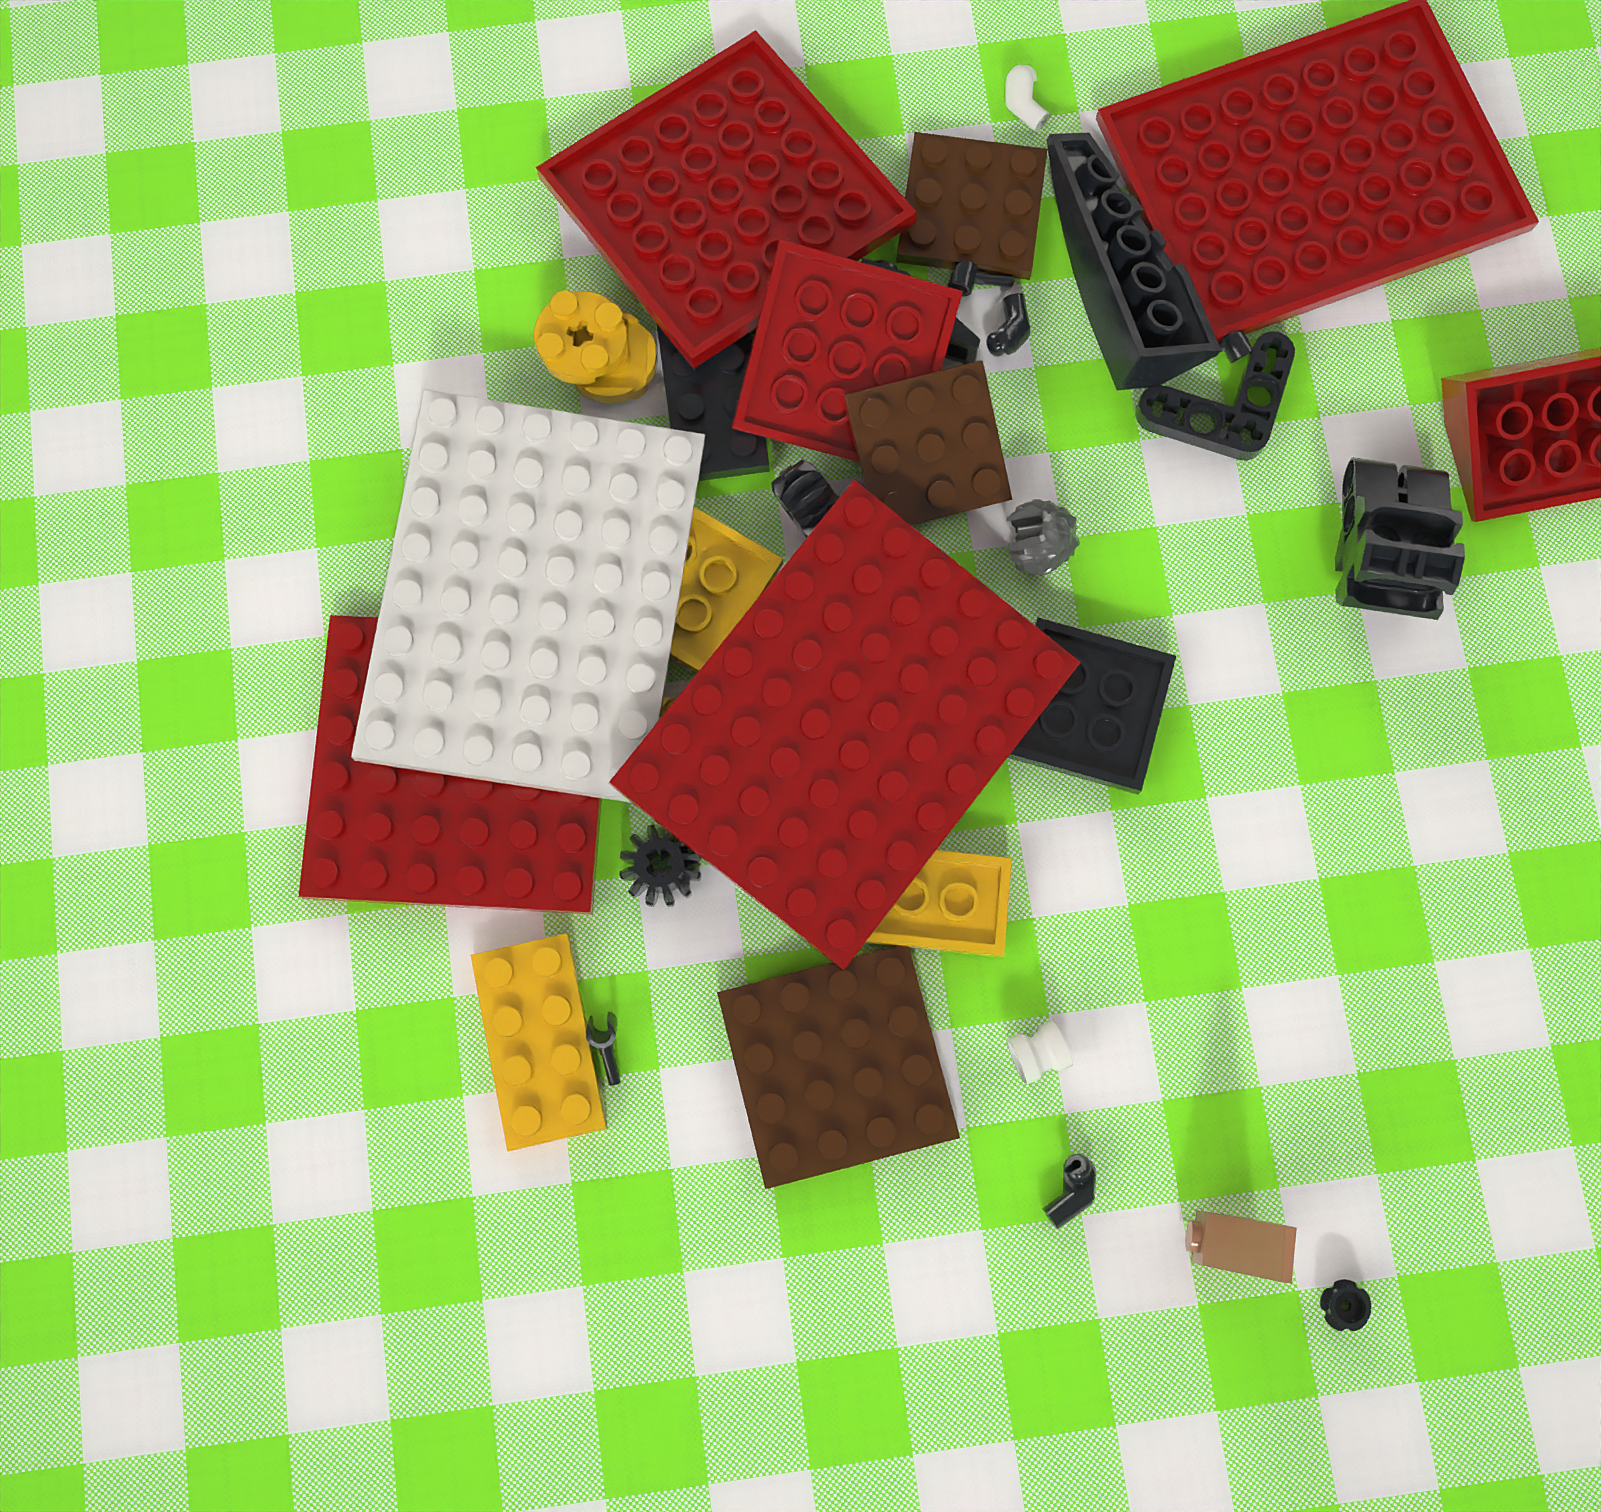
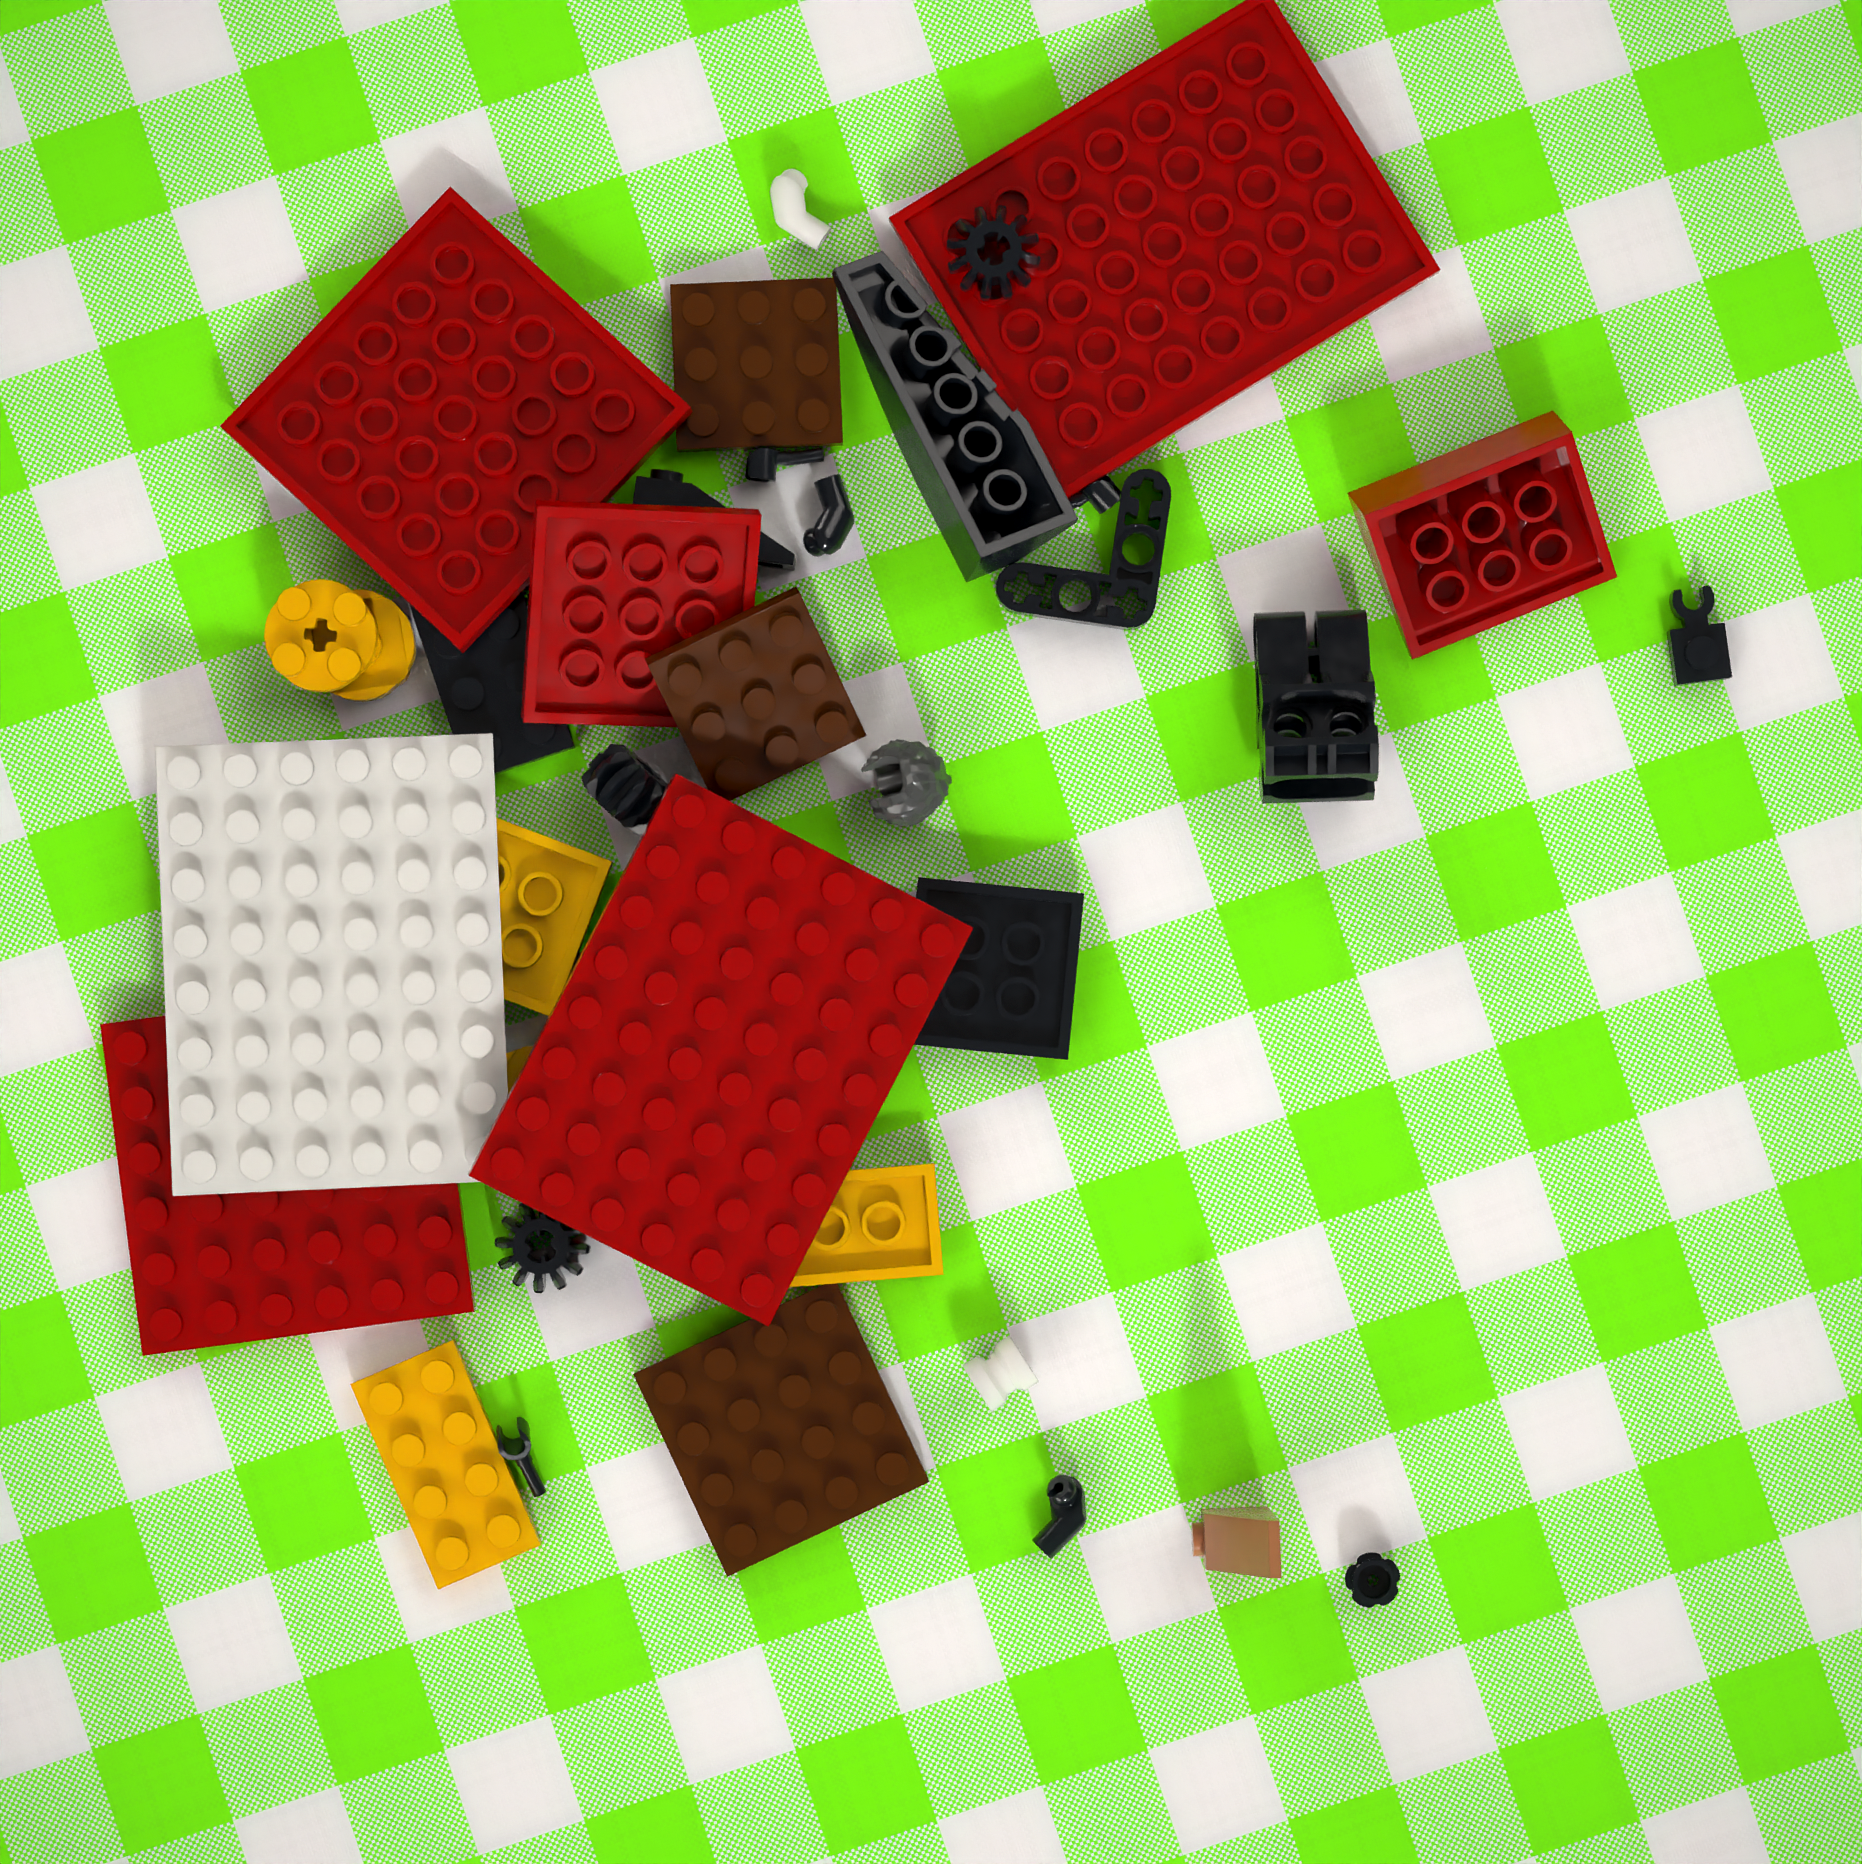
camera: 15 degrees left, 10 degrees up
(1181, 139) = (1012, 258): none -> black gear

